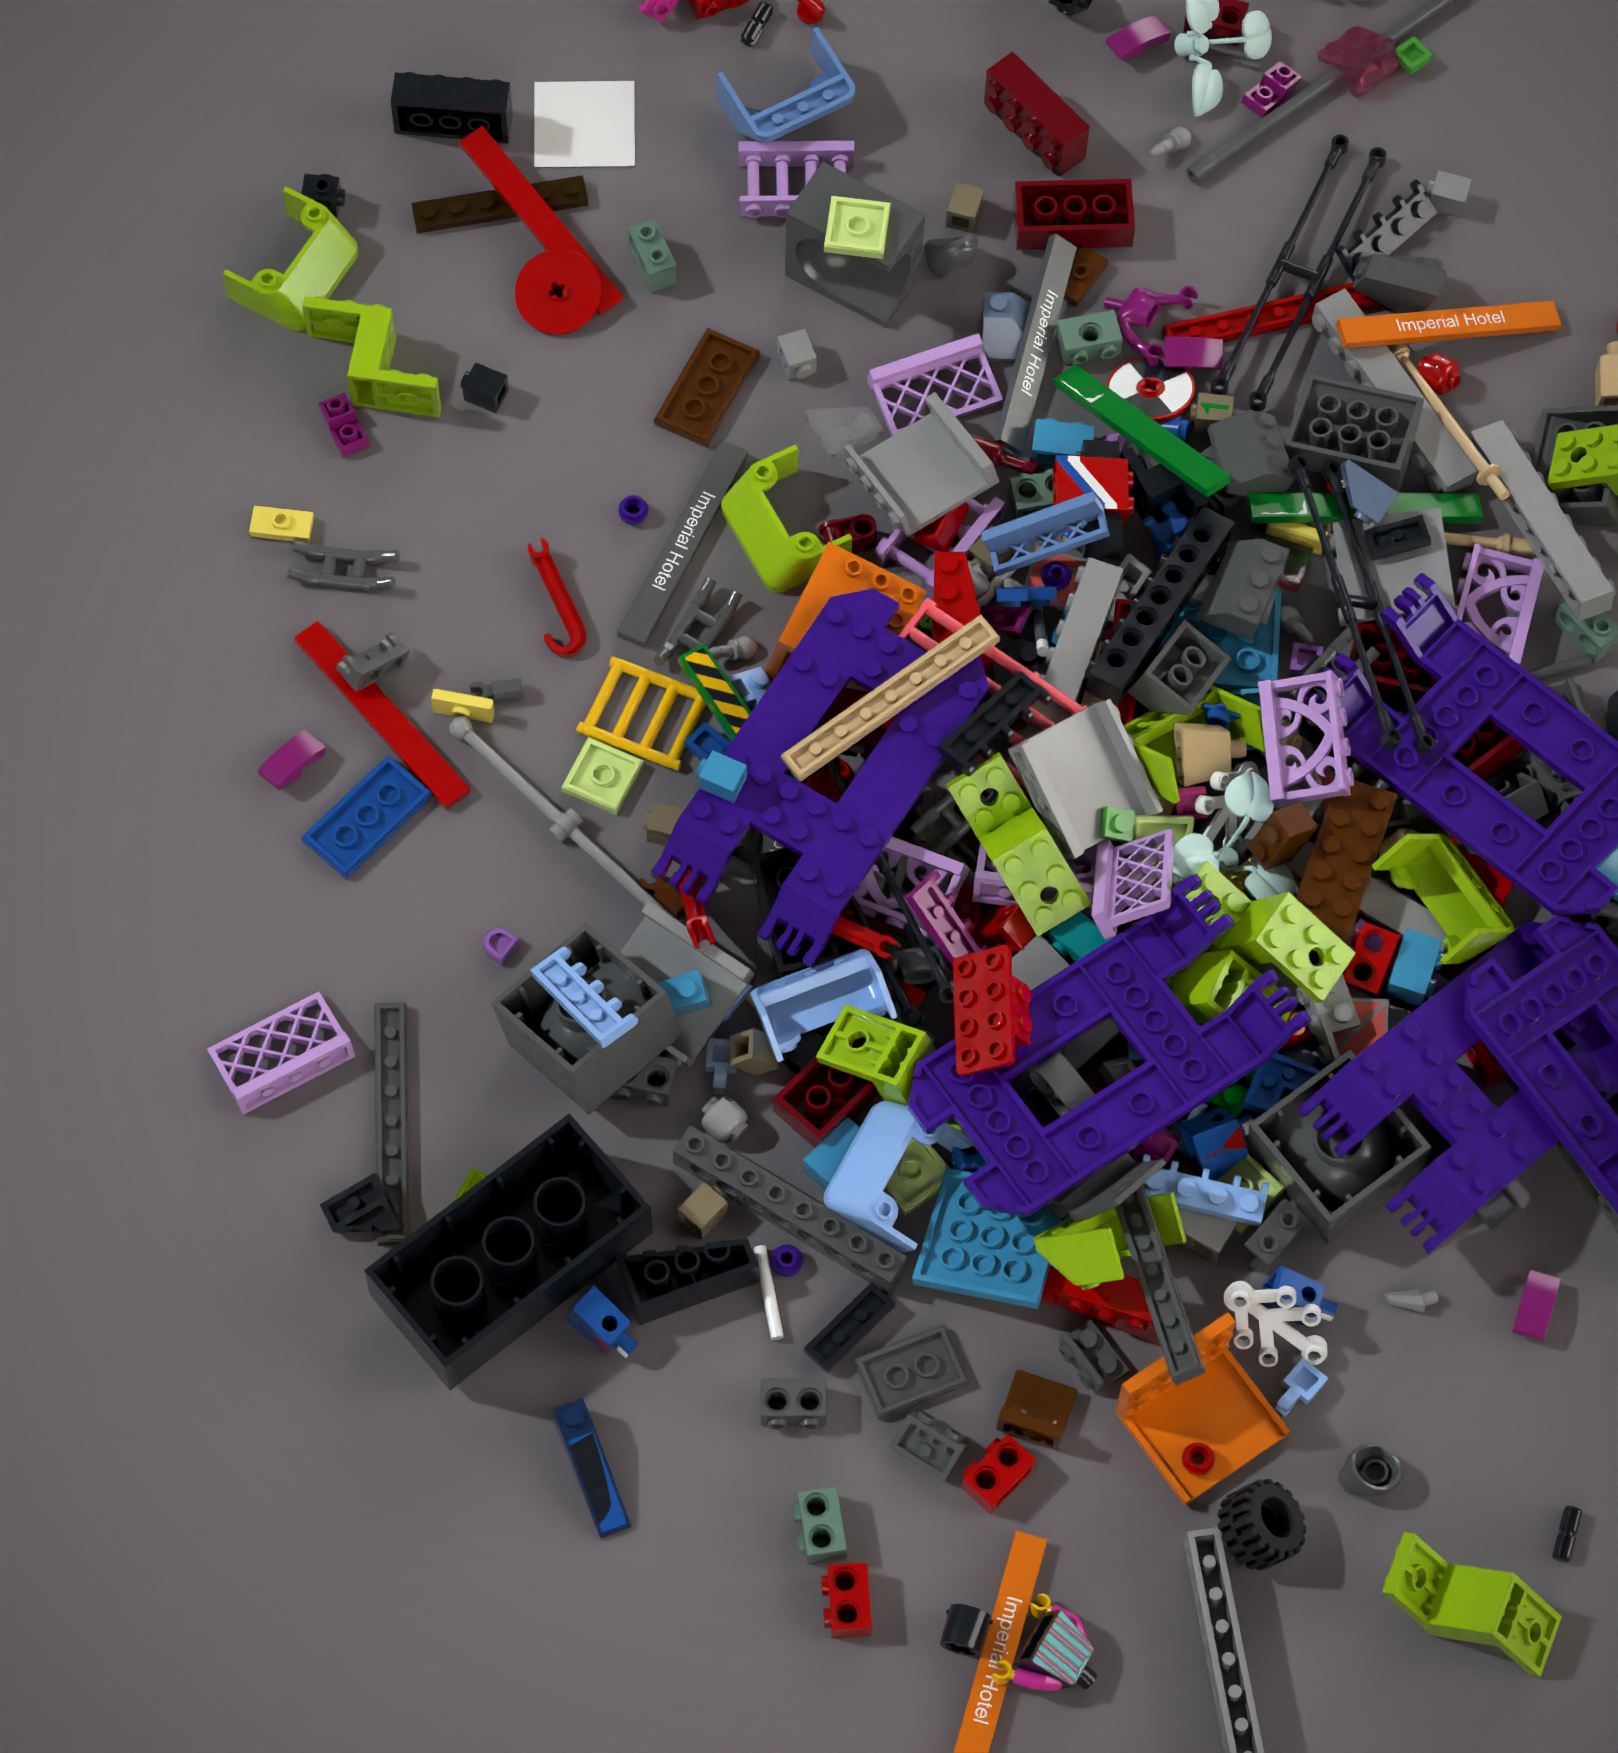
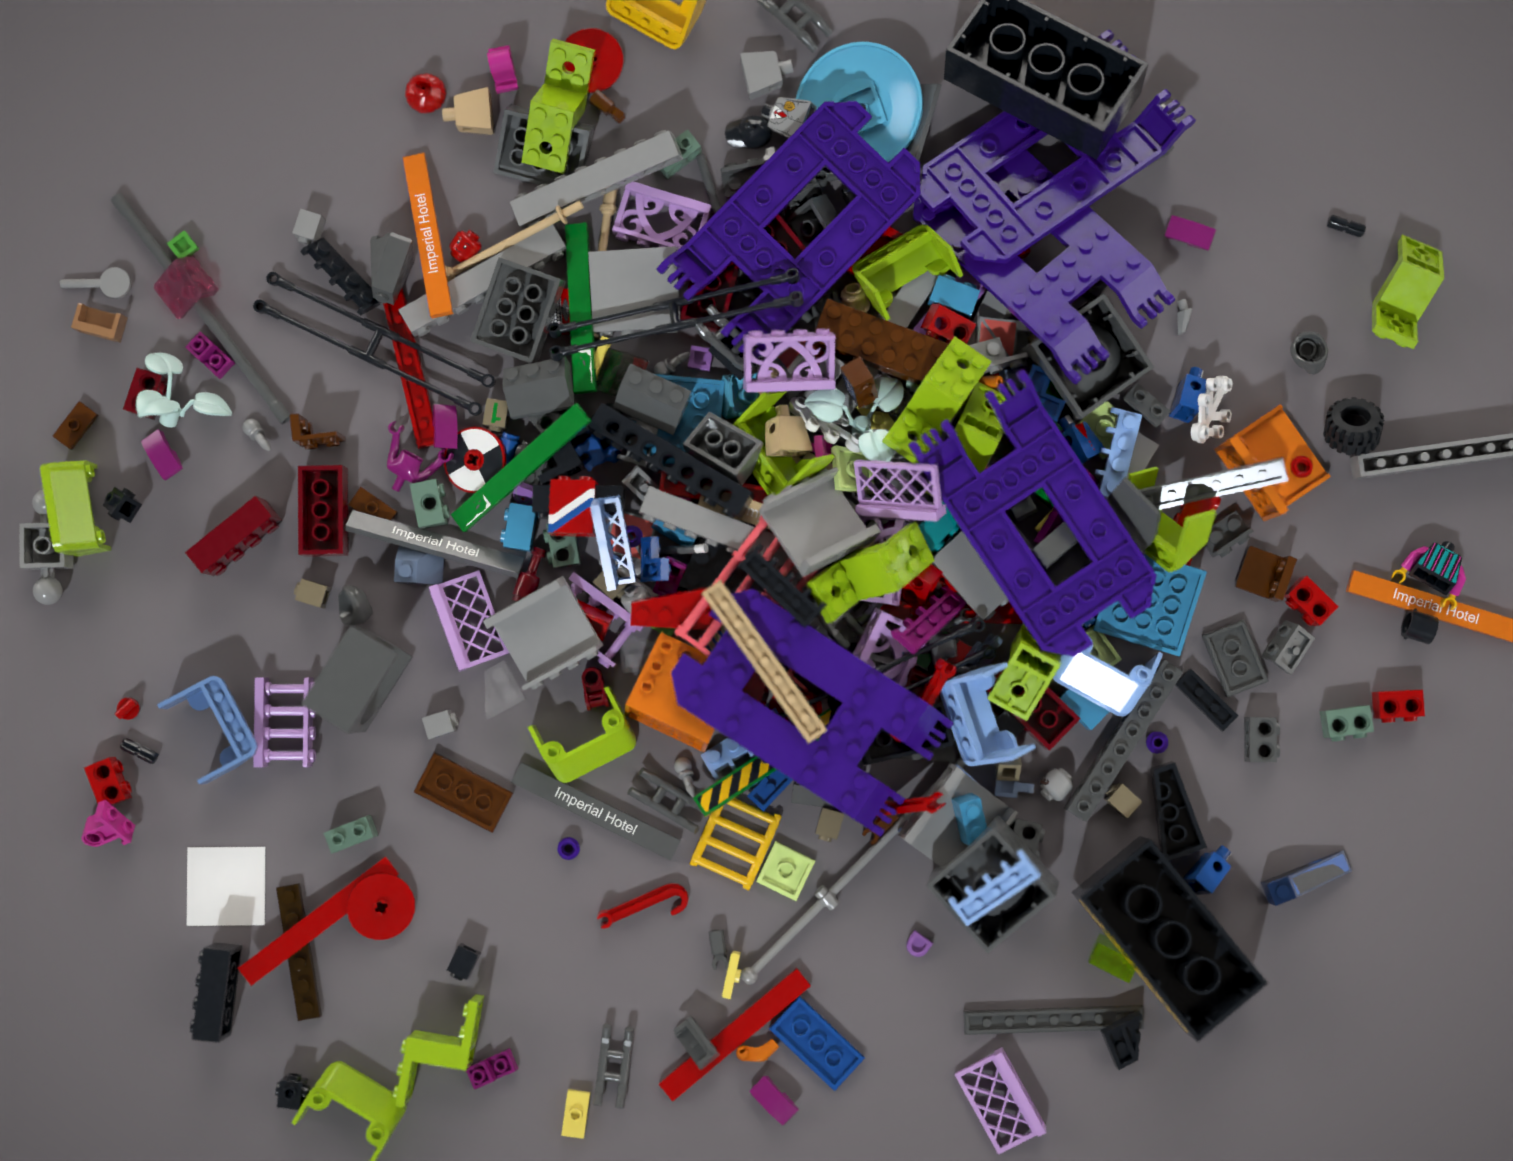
camera: 90 degrees left, 20 degrees up
(354, 741) = (757, 1054): none -> orange arm
(721, 776) = (828, 787): dark azure brick -> none
(768, 1293) = (1177, 755): white bar -> none
(857, 227) = (363, 678): yellowish green tile -> none
(988, 1011) = (1010, 597): red bracket -> none
(1117, 824) = (844, 500): bright green plate -> none
(1174, 189) = (303, 434): none -> reddish brown bracket
(1219, 715) = (759, 422): blue plate -> none
(1301, 1385) = (1245, 393): light blue plate -> none
(1366, 493) = (580, 302): sand blue slope -> none
(1397, 537) = (616, 284): black plate -> none

